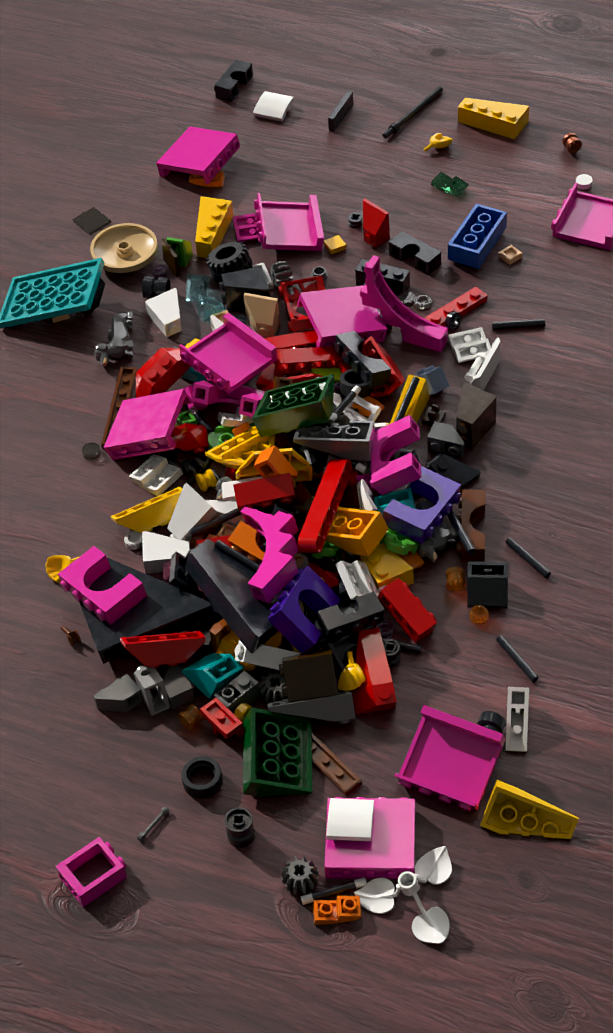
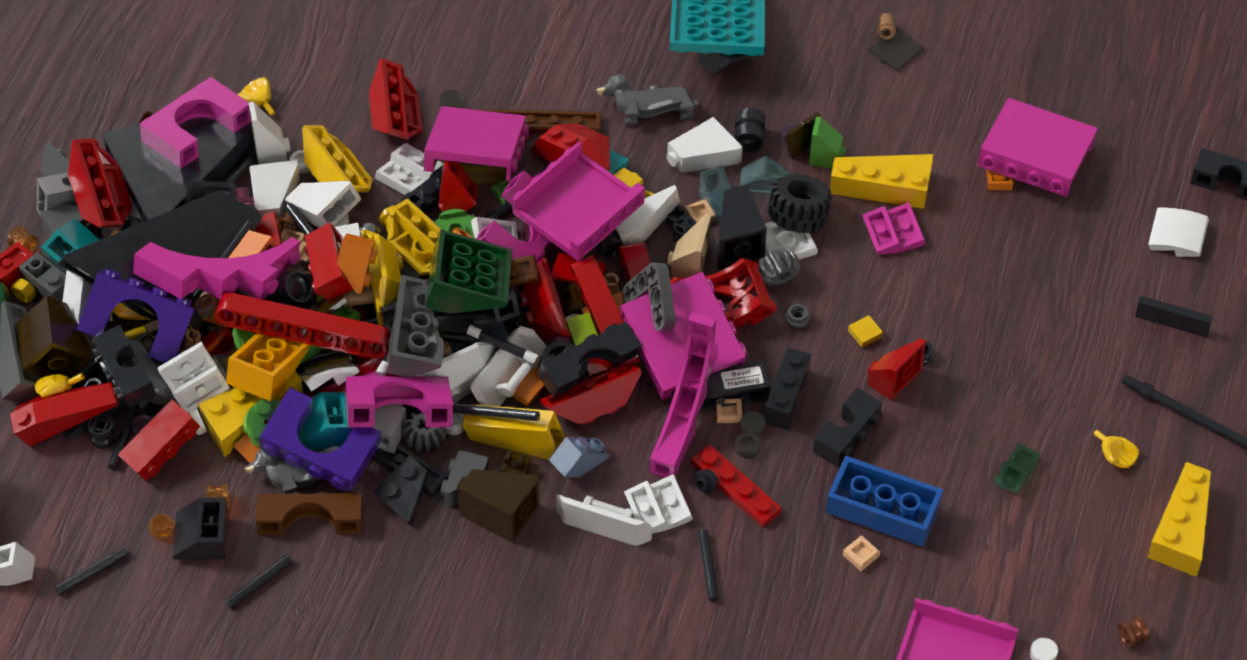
camera: 80 degrees right, 5 degrees up
(78, 219) = (886, 28): none -> medium nougat pin
(94, 480) = (394, 102): none -> red wedge
(118, 546) = (268, 137): none -> white slope
(124, 247) = (825, 82): tan dish -> none
(289, 225) = (894, 266): panel -> none
(313, 314) = (655, 282): none -> dark grey beam
(461, 533) = (301, 487): black bar -> none

